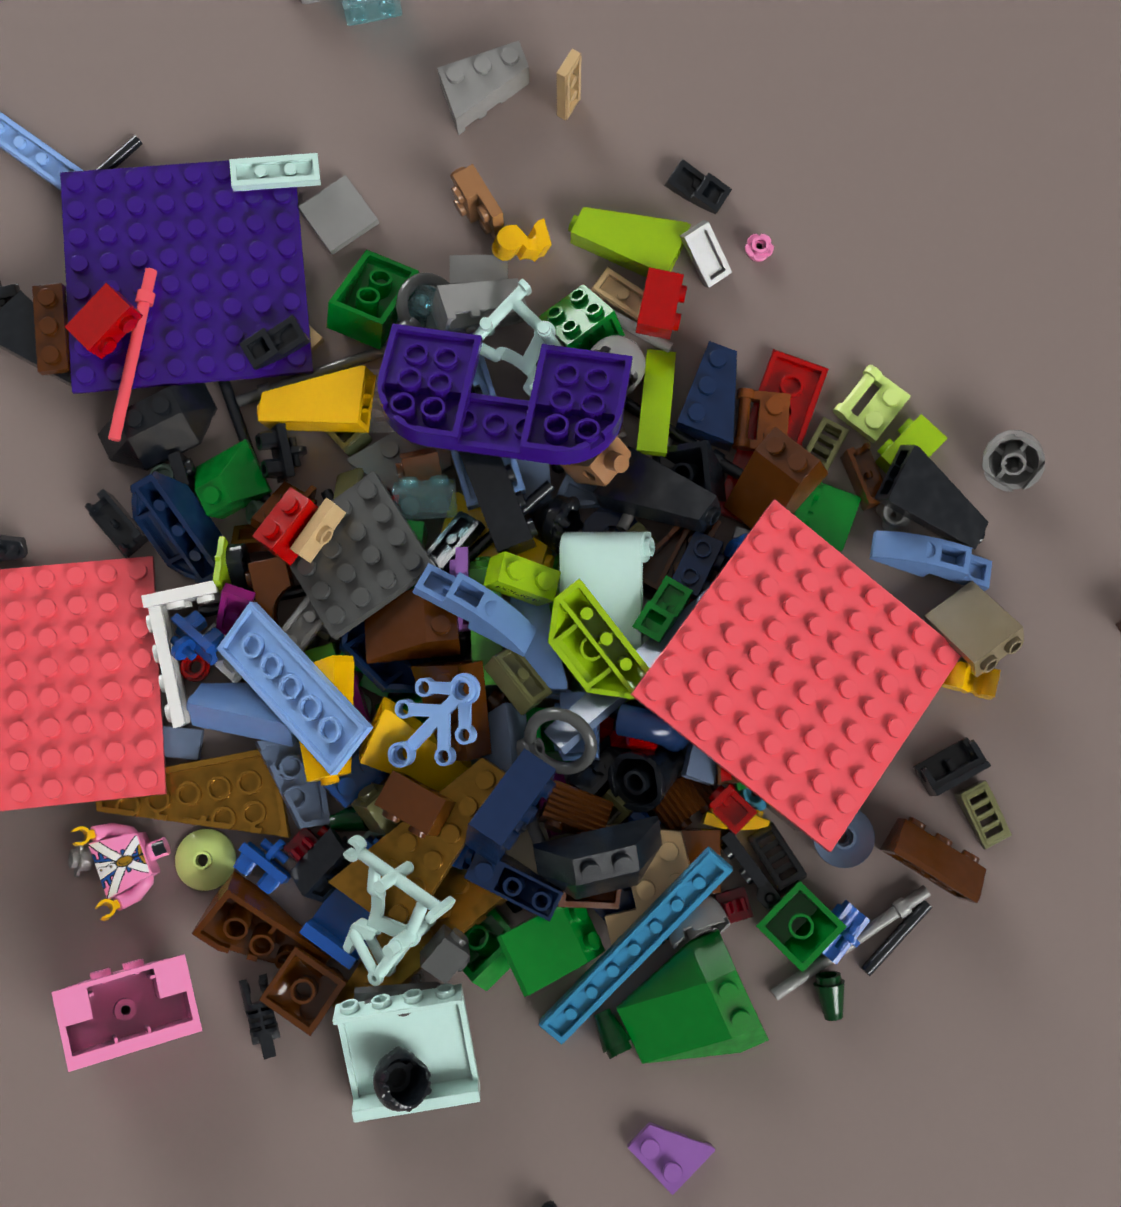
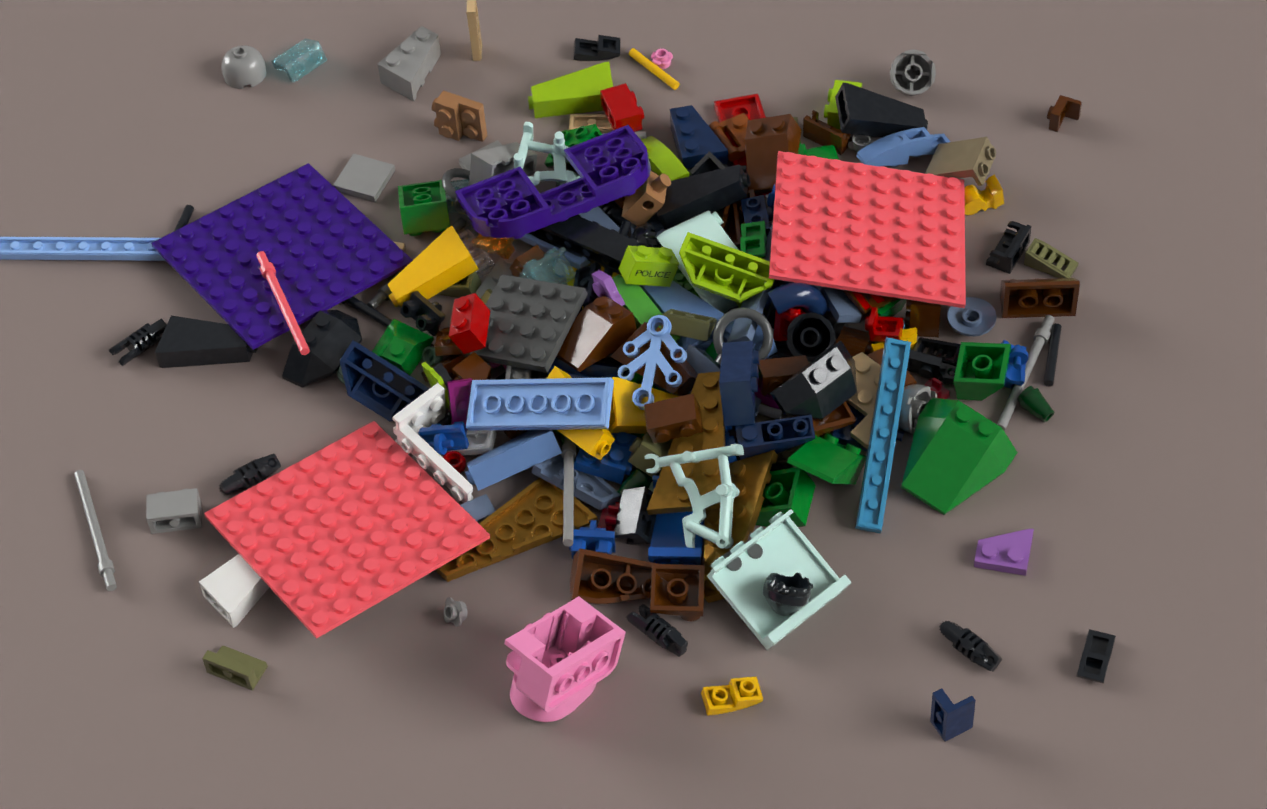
camera: 30 degrees left, 30 degrees down
(50, 329) = (211, 321): reddish brown plate -> none
(104, 321) = (252, 288): red brick -> none
(117, 523) = (335, 411): black hinge -> none
(124, 862) = (487, 592): torso -> none
(220, 856) = (547, 578): yellowish green dish -> none
(260, 813) = (569, 452): none -> light grey bar
(272, 345) = (378, 252): black slope -> none
(275, 172) = (305, 169): light aqua plate -> none
(284, 1140) = (732, 697): none -> yellow slope
(318, 530) = (491, 314): tan plate -> none
(445, 953) = (760, 499): dark grey brick -> none
(479, 606) = (642, 289): medium blue slope -> none
(513, 241) = (505, 127): yellow leg -> none
(612, 1035) = (911, 505): dark green cone -> none
(706, 253) = (630, 73): tile -> none
(741, 256) = (653, 68): none -> yellow bar
(878, 411) = (808, 96): yellowish green plate -> none

